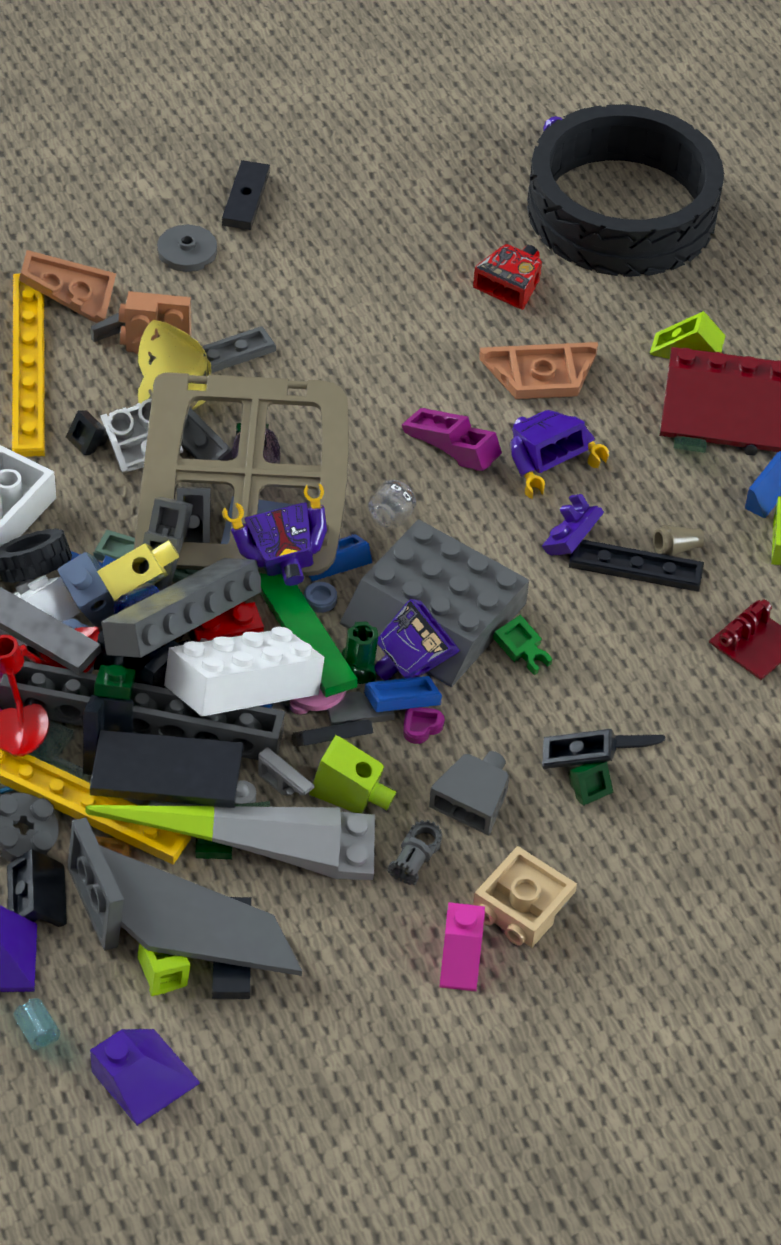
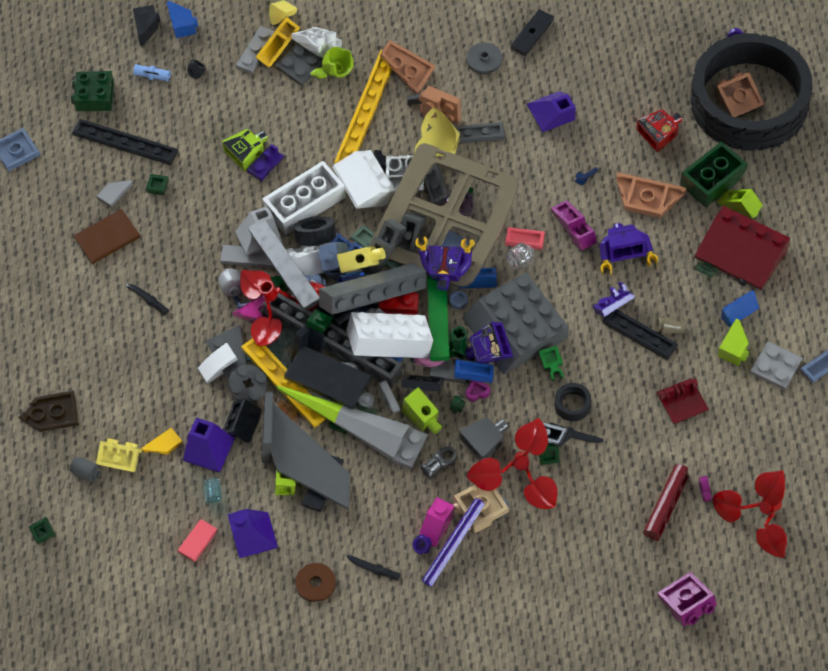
camera: 30 degrees right, 10 degrees up
(46, 1119) = (197, 540): none -> coral tile
(82, 458) = (364, 180): none -> white slope
(291, 1139) = (318, 593): none -> reddish brown tile
(336, 289) = (552, 110): none -> dark purple slope
(367, 479) = (529, 237): none -> coral tile
(397, 1060) = (377, 569): none -> black piece
(401, 753) = (457, 404): none -> dark green plate
(428, 371) = (582, 178): none -> dark blue hand
(450, 1002) = (417, 544): none -> dark purple plate
(511, 969) = (453, 542): none -> axle
(517, 834) = (534, 439): none -> red plant
(581, 712) = (575, 415): none -> black tyre
(607, 195) = (738, 95): none -> nougat plate
(629, 312) = (713, 174): none -> dark green brick

